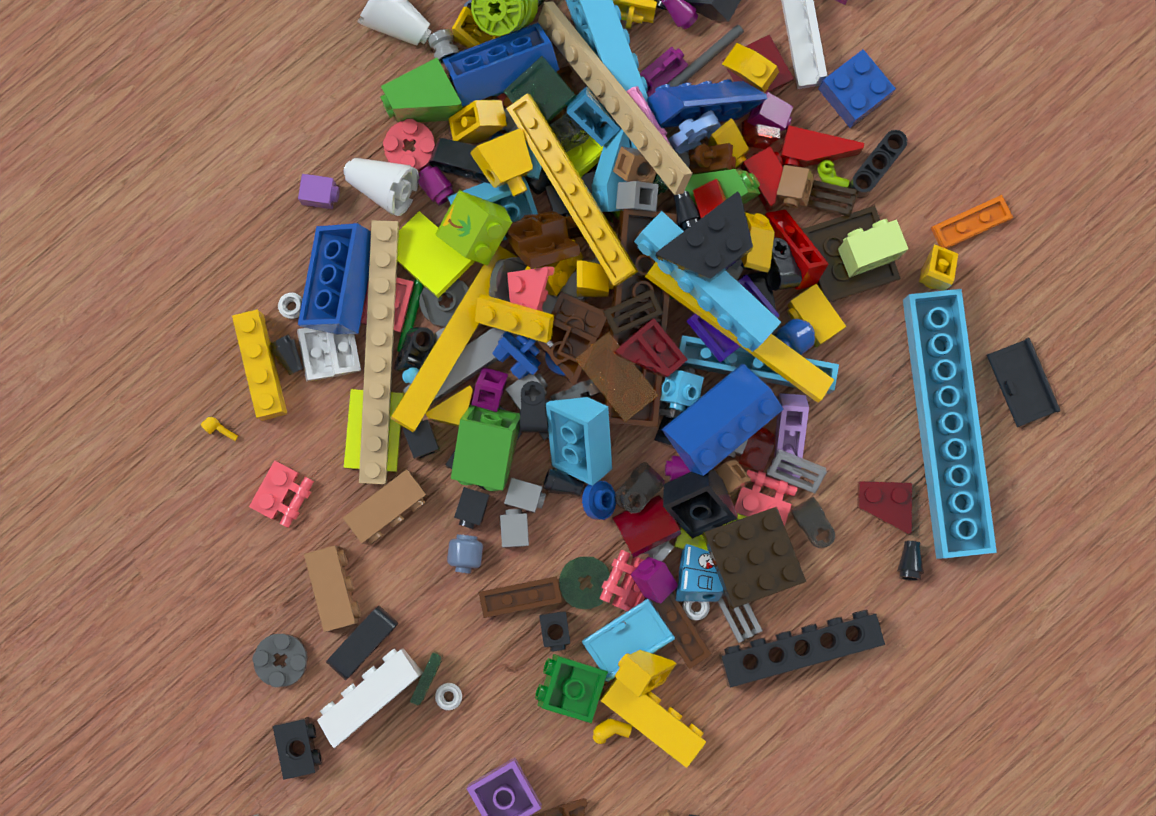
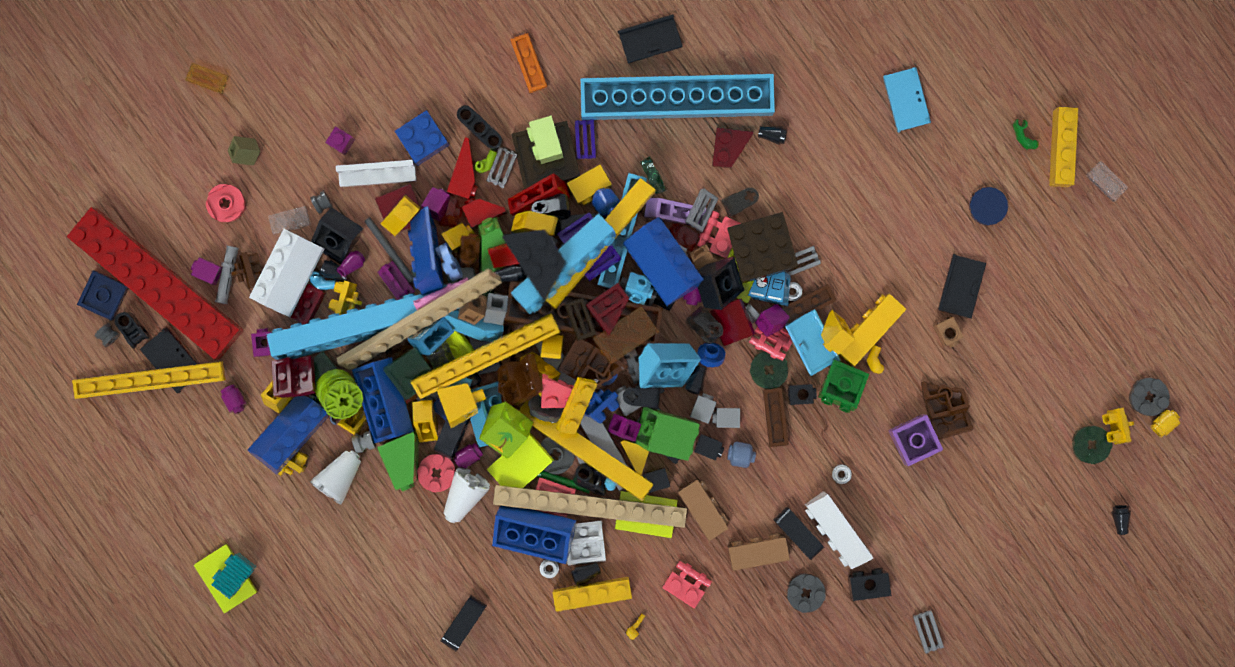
camera: 80 degrees left, 5 degrees up
(209, 197) = (463, 623): none -> black beam
(318, 191) = (466, 542): medium lavender brick -> none
(426, 678) = (827, 488): clear green tile -> none
(795, 186) = (492, 191): medium nougat brick -> none
(837, 401) = (653, 175): none -> clear green plate
(868, 637) = (825, 170): black brick -> none
(874, 296) = (584, 123): none -> dark purple tile
(939, 268) = (562, 91): yellow slope -> none
(976, 742) = (905, 101): none -> medium azure door

